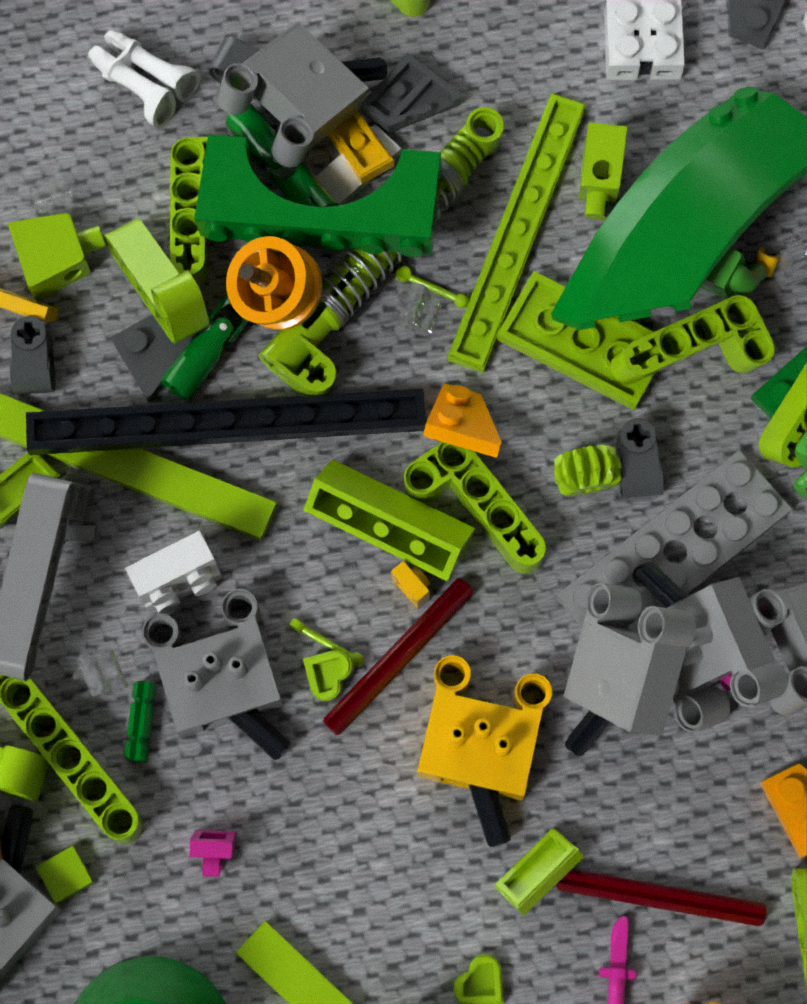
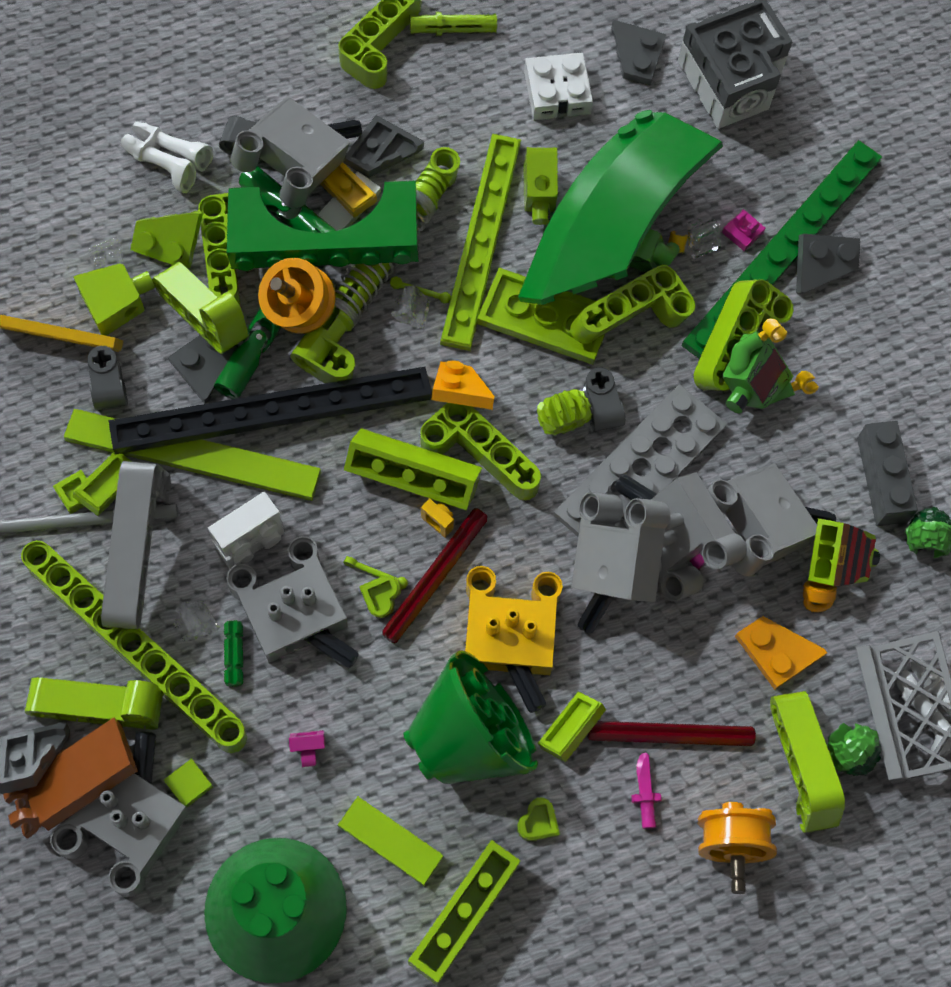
camera: 15 degrees left, 5 degrees down
(130, 185) = (168, 237): none -> lime wing
(413, 860) = (470, 727): none -> green cone

